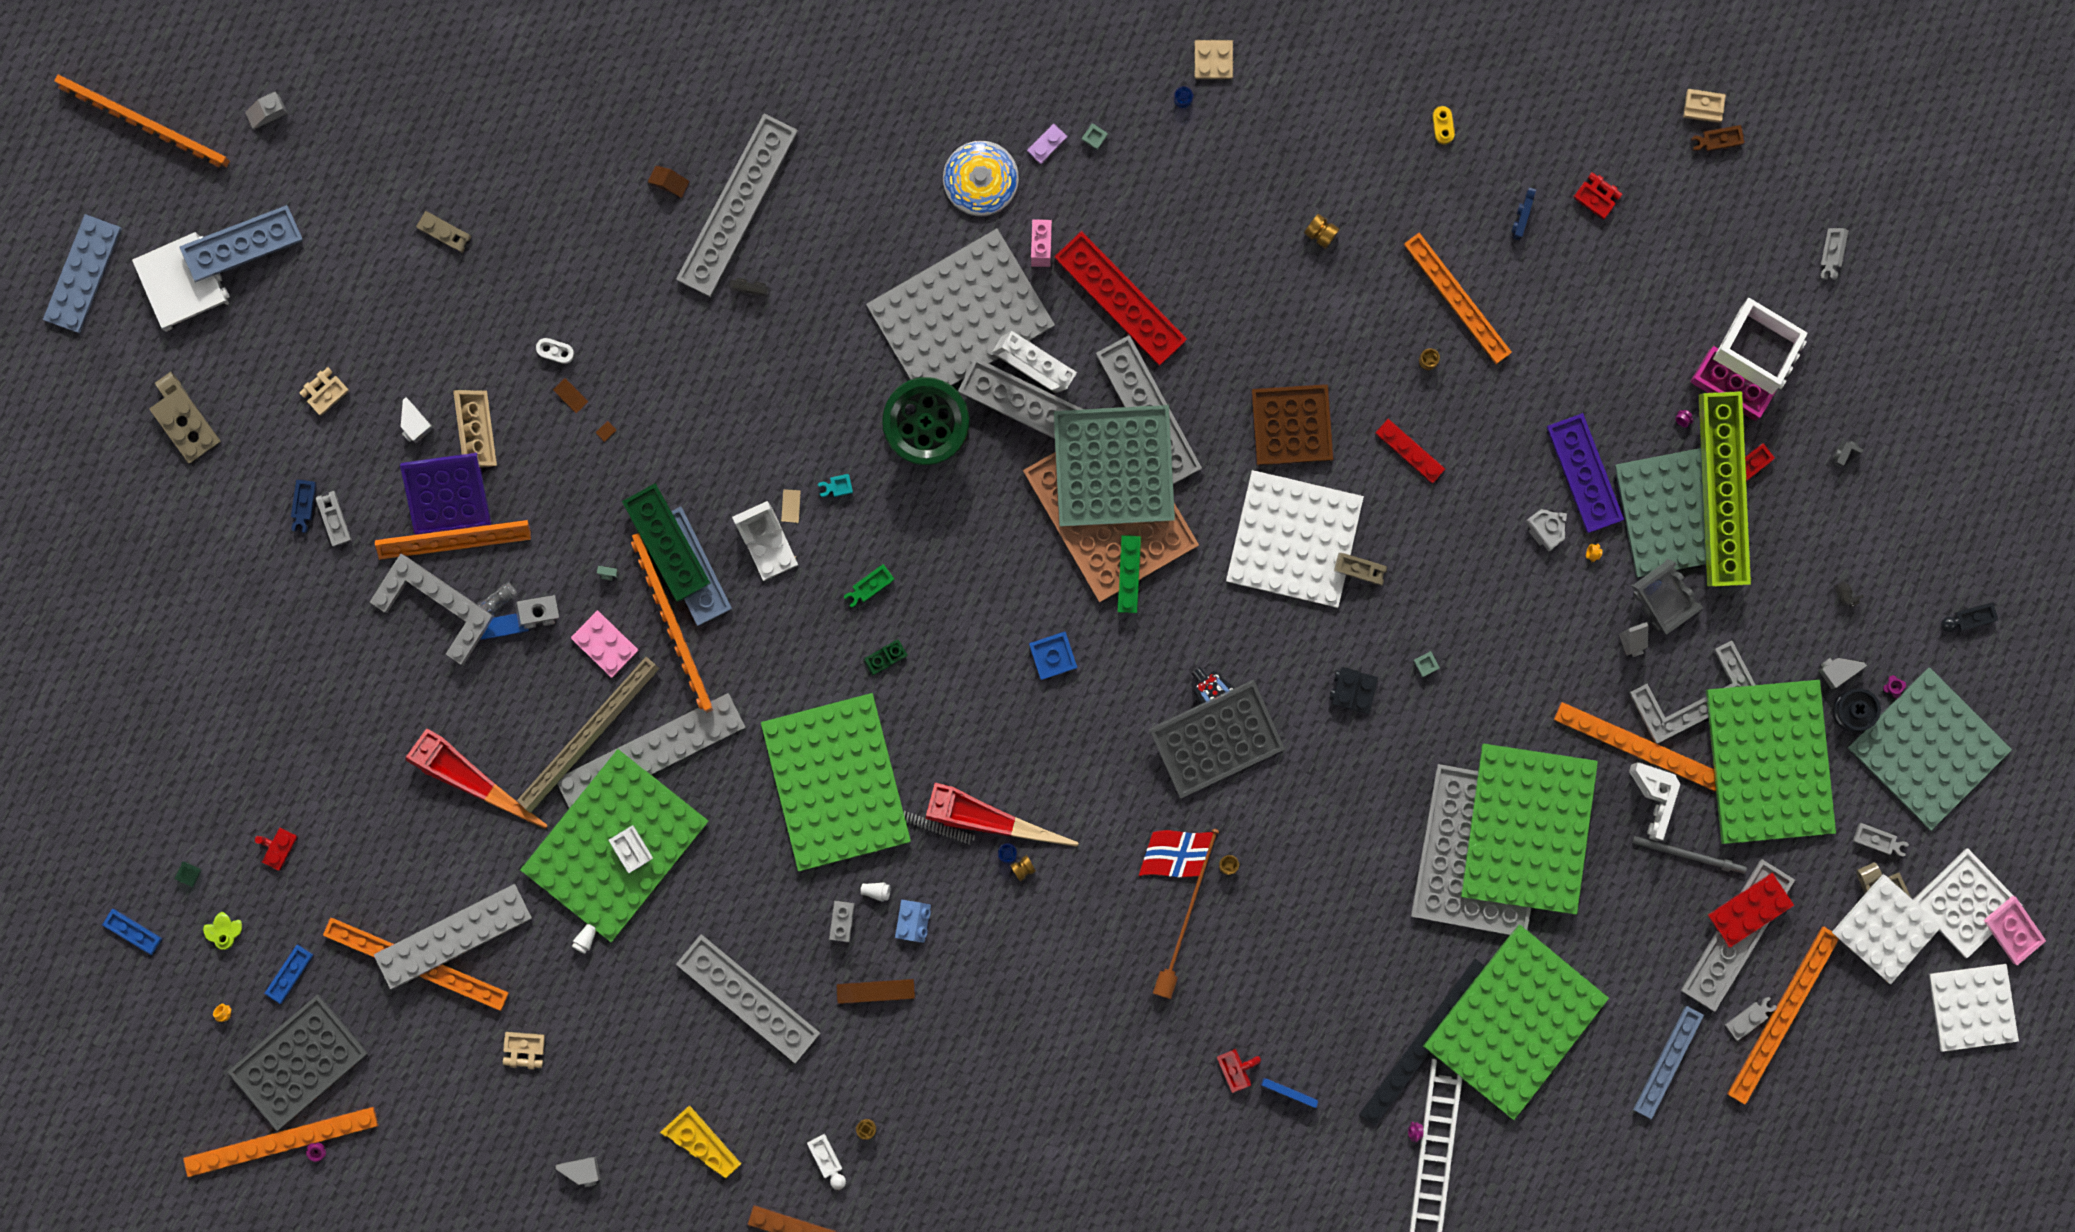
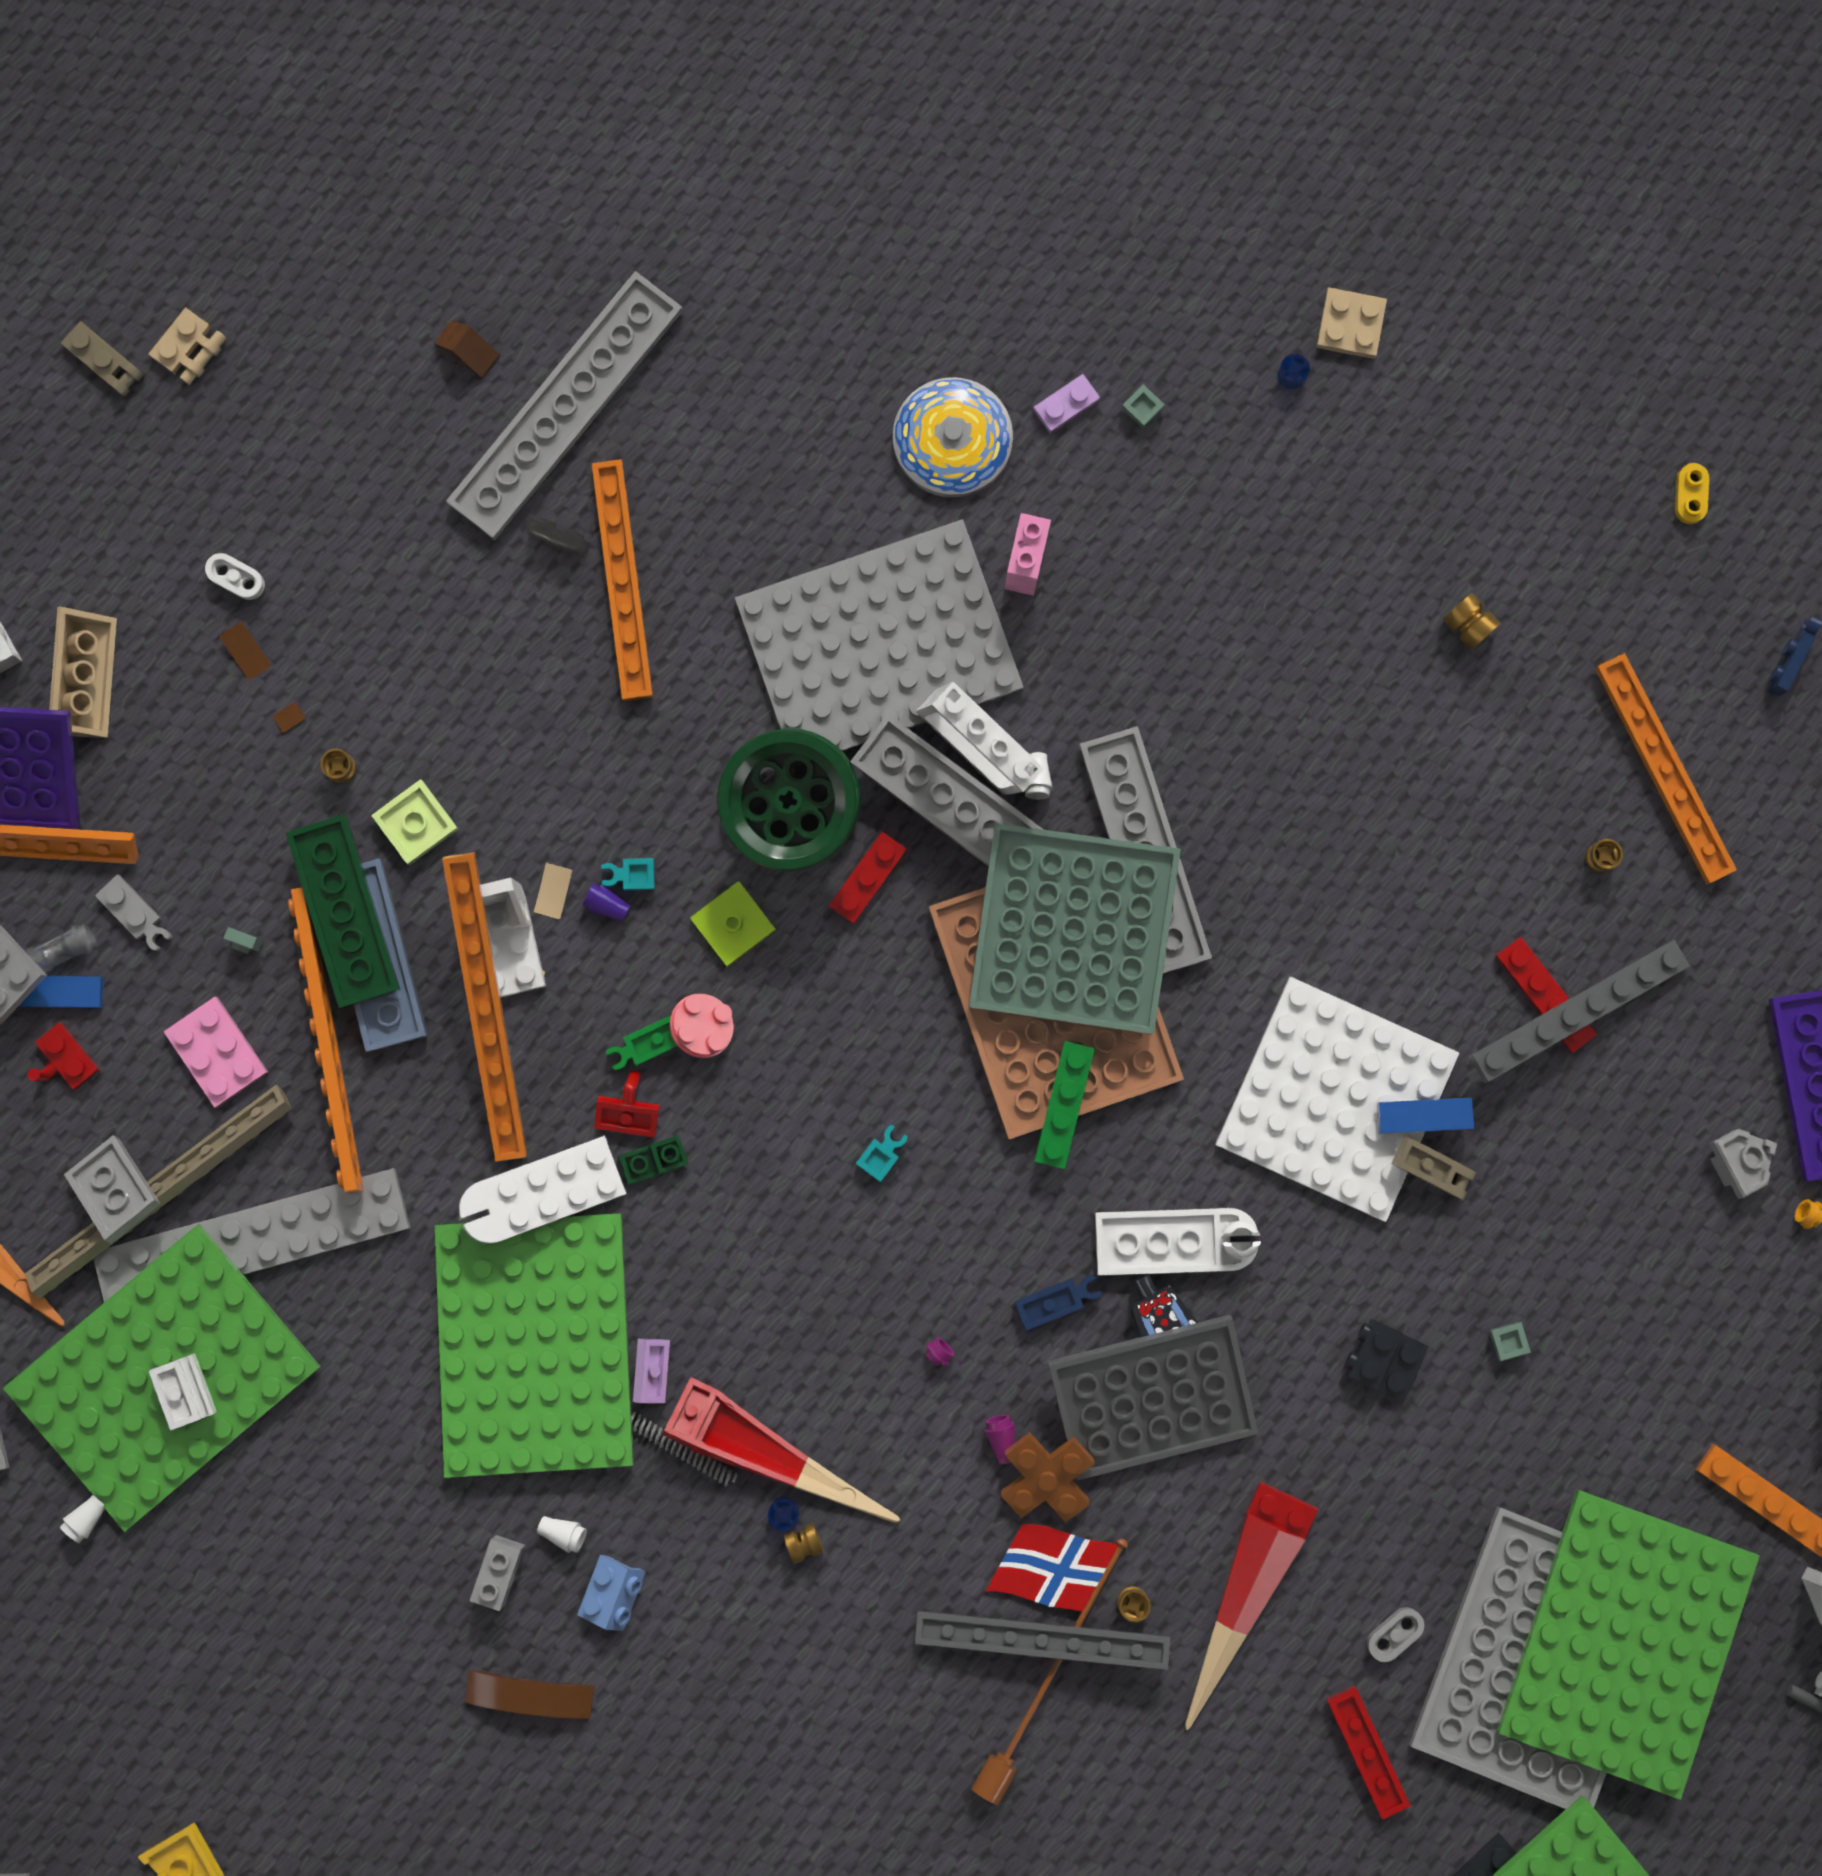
camera: 10 degrees right, 0 degrees up
(490, 210) = (181, 340): none -> tan plate
(513, 665) = (65, 1057): none -> red plate
(535, 568) = (132, 911): none -> light grey plate
(545, 604) = (101, 970): light grey brick -> none
(561, 737) = (112, 1189): none -> light grey plate
(641, 452) = (334, 761): none -> pearl gold wheel
(697, 480) = (414, 822): none -> yellowish green plate
(748, 998) = (323, 1667): light grey plate -> none
(766, 582) = (485, 1006): none -> orange plate
(794, 306) = (622, 580): none -> orange plate
(822, 688) = (541, 1192): none -> white plate
(824, 506) = (605, 903): none -> dark purple cone
(864, 632) = (627, 1114): none -> red plate
(899, 569) = (701, 1025): none -> coral piece
(905, 504) = (733, 924): none -> lime plate
(910, 783) = (651, 1371): none -> lavender plate
(982, 460) = (867, 877): none -> red plate
(1022, 628) = (879, 1157): none -> teal plate
(1053, 655) = (918, 1210): blue plate -> none
(1077, 383) = (1042, 785): none -> white cone
(1082, 738) = (939, 1352): none -> magenta plate
(1120, 298) = (1134, 666): red plate -> none
(1130, 782) = (1001, 1435): none -> magenta cone
(1146, 695) = (1054, 1302): none -> dark blue plate
(1162, 799) = (1047, 1477): none -> dark orange plate
(1177, 896) = (1042, 1640): none -> dark grey plate
(1211, 644) = (1173, 1241): none -> white plate
(1292, 424) = (1367, 917): reddish brown plate -> none
(1302, 816) = (1266, 1547): none -> red plate
(1349, 538) = (1425, 1115): none -> blue tile
(1386, 925) = (1368, 1752): none -> red plate
(1389, 852) = (1397, 1637): none -> light grey plate
(1431, 456) = (1579, 1011): none -> dark grey plate

